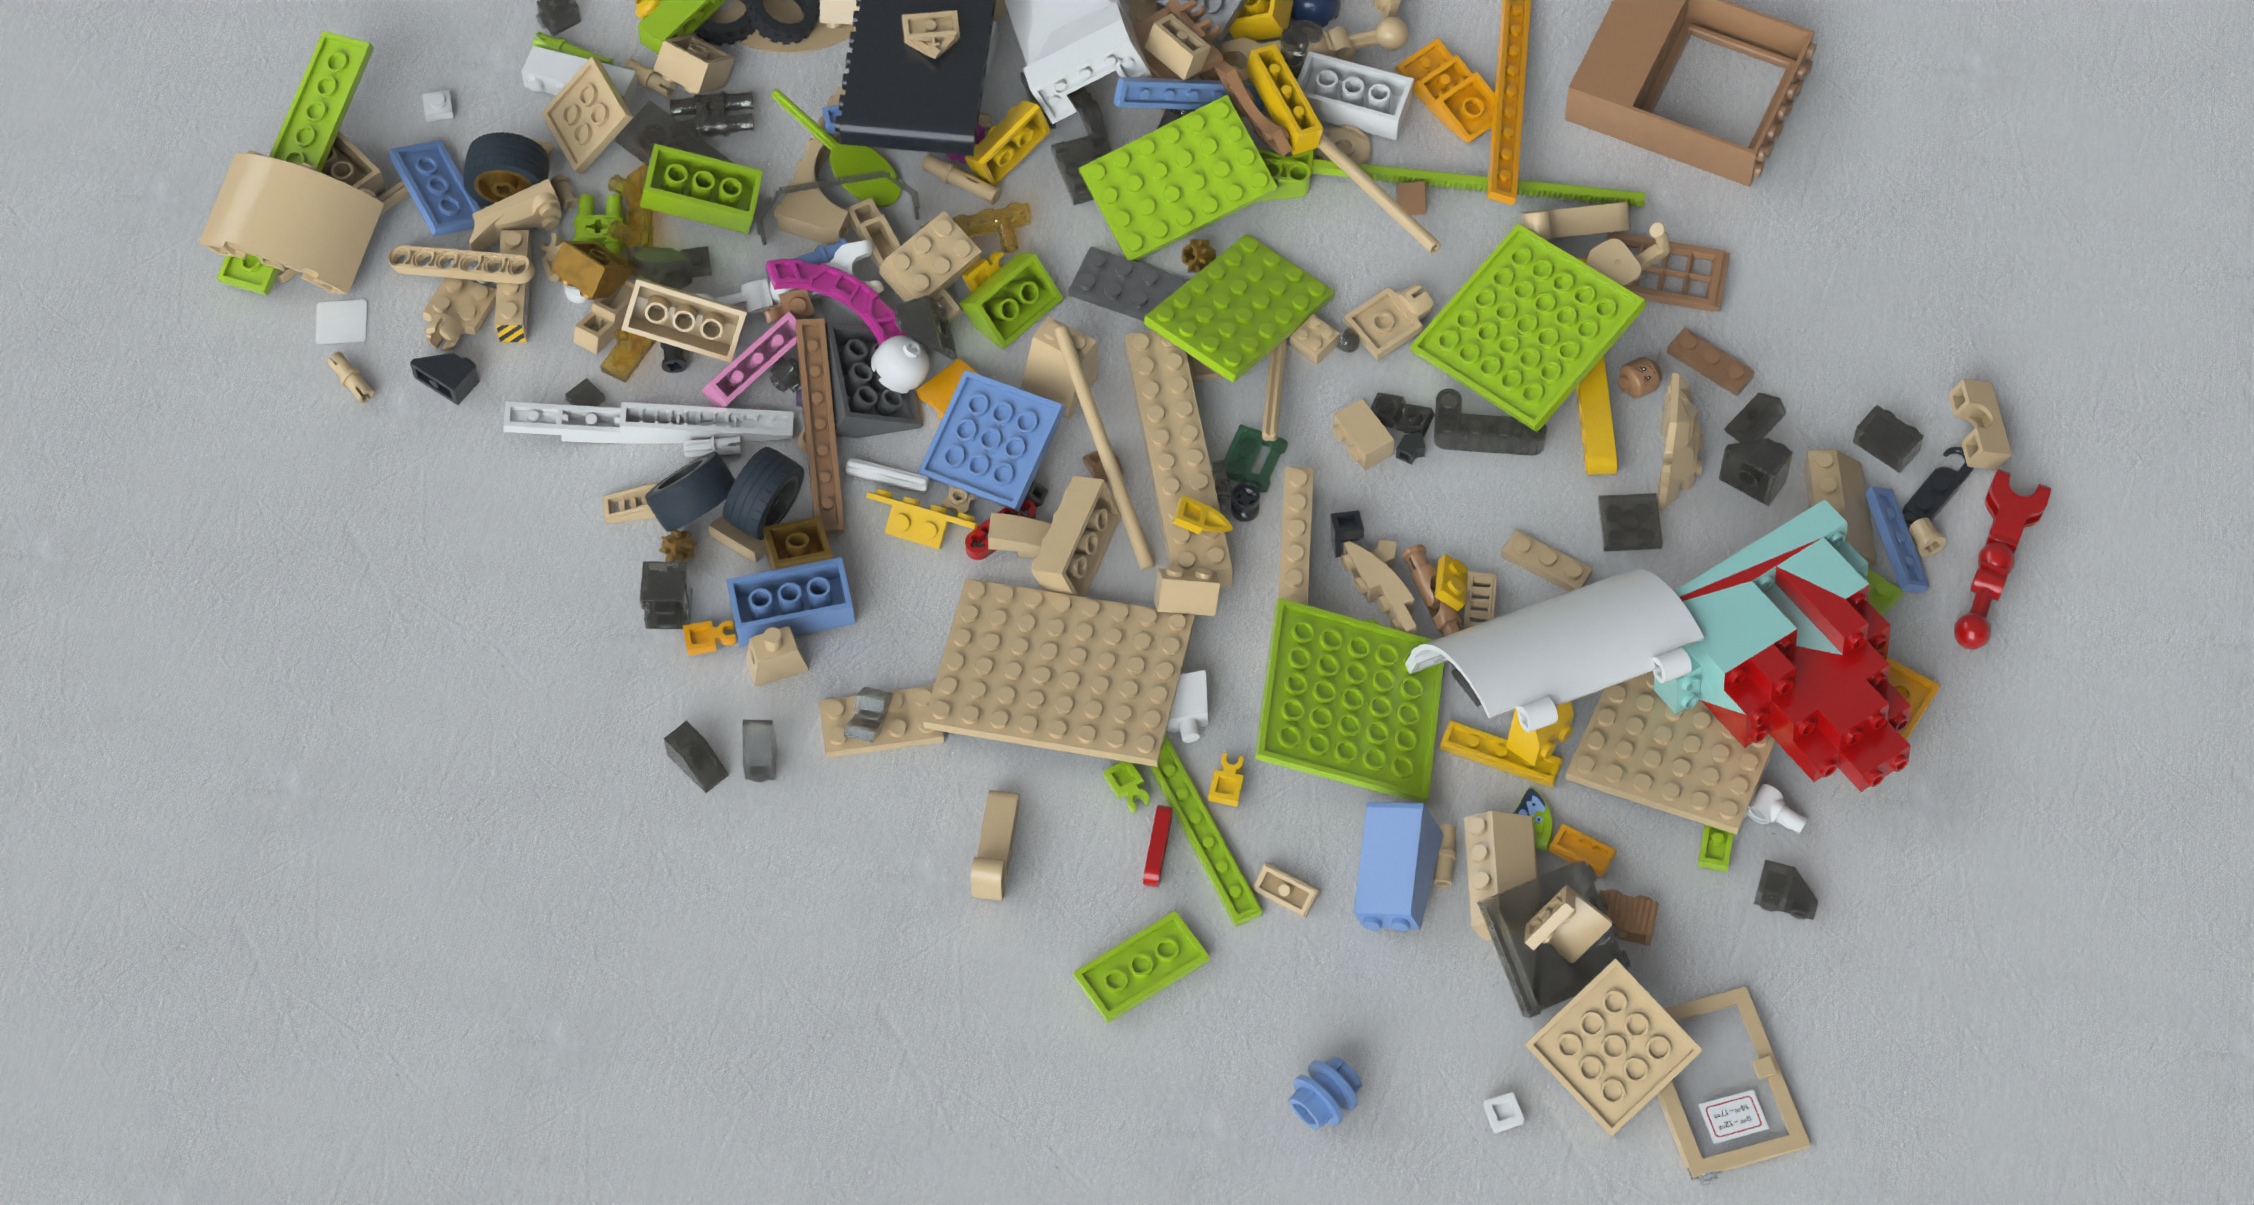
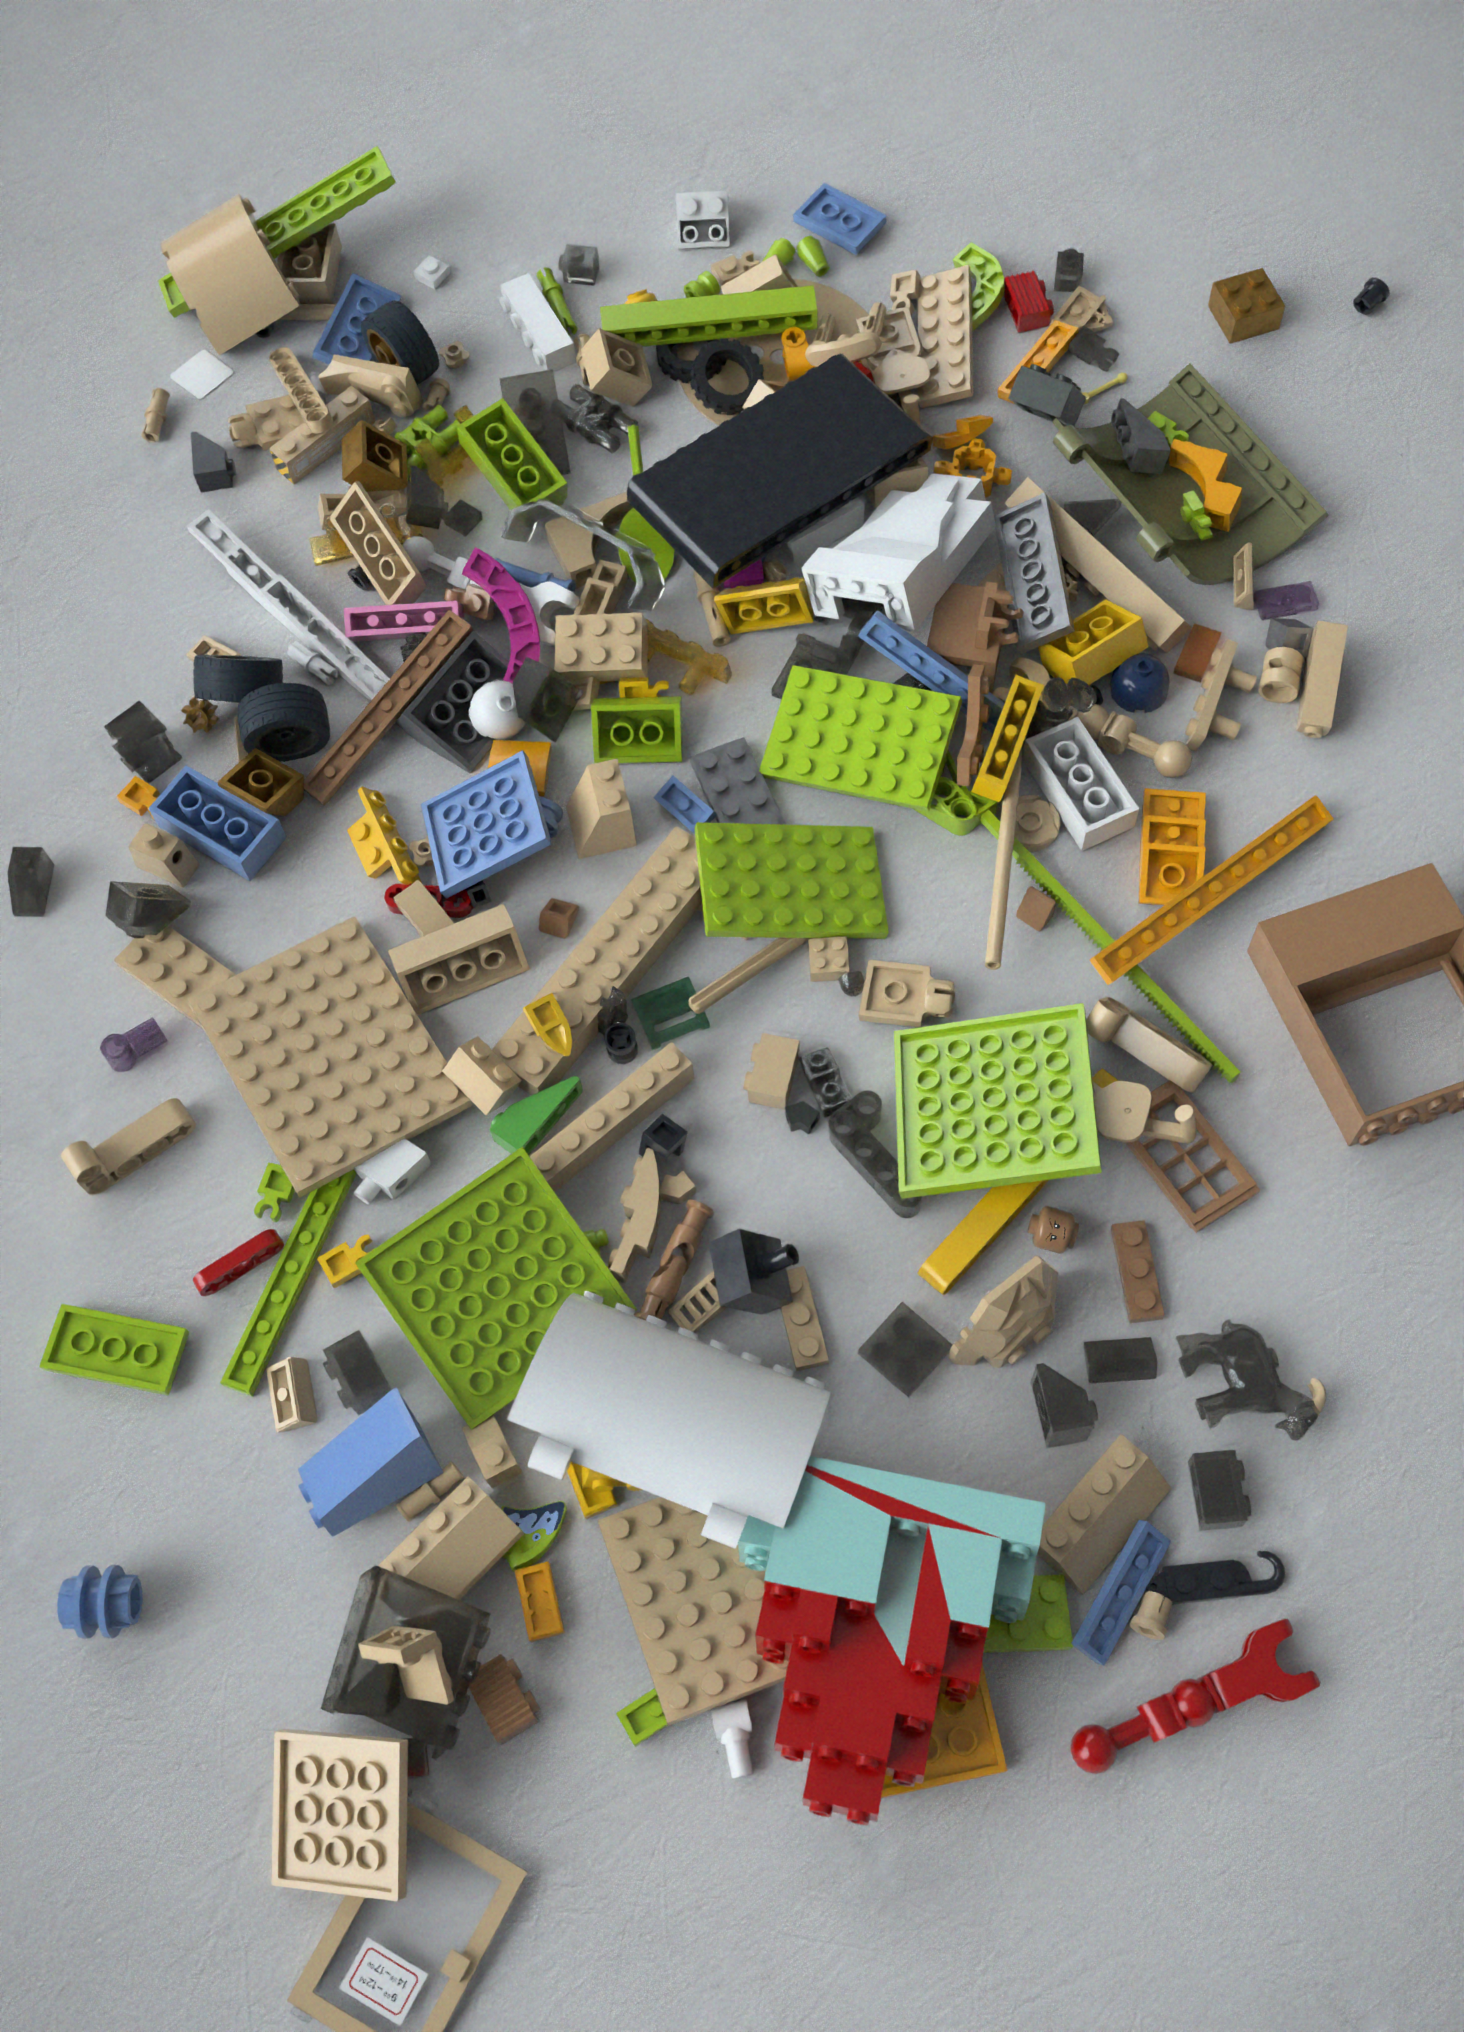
camera: 50 degrees right, 5 degrees up
(585, 394) = (280, 554): clear smoke tile -> none
(587, 115) = (503, 348): tan plate -> none
(759, 750) = (65, 917): clear smoke slope -> none
(812, 696) = (144, 907): none -> clear smoke slope
(868, 715) = (168, 957): clear smoke slope -> none
(887, 475) = (400, 788): white axle -> none
(912, 787) = (133, 1043): none -> clear purple piece
(931, 32) = (780, 464): tan slope -> none
(1104, 448) = (550, 902): tan piece -> none
(1105, 321) = (684, 804): none -> medium blue plate
(1177, 46) = (957, 624): tan brick -> none
(1198, 255) = (812, 811): pearl gold gear -> none
(1243, 600) = (532, 1118): none -> bright green slope
(1320, 831) = (356, 1371): none -> clear smoke brick
(1451, 582) = (689, 1264): yellow plate -> none
(1455, 797) = (492, 1452): none -> tan slope
(1496, 551) = (752, 1271): none -> black brick
(1503, 1112) = (217, 1767): white plate -> none
(1785, 891) = (658, 1816): clear smoke slope -> none
(1839, 361) = (1251, 1379): none -> clear smoke animal
(1988, 443) = (1337, 1540): tan arch -> none

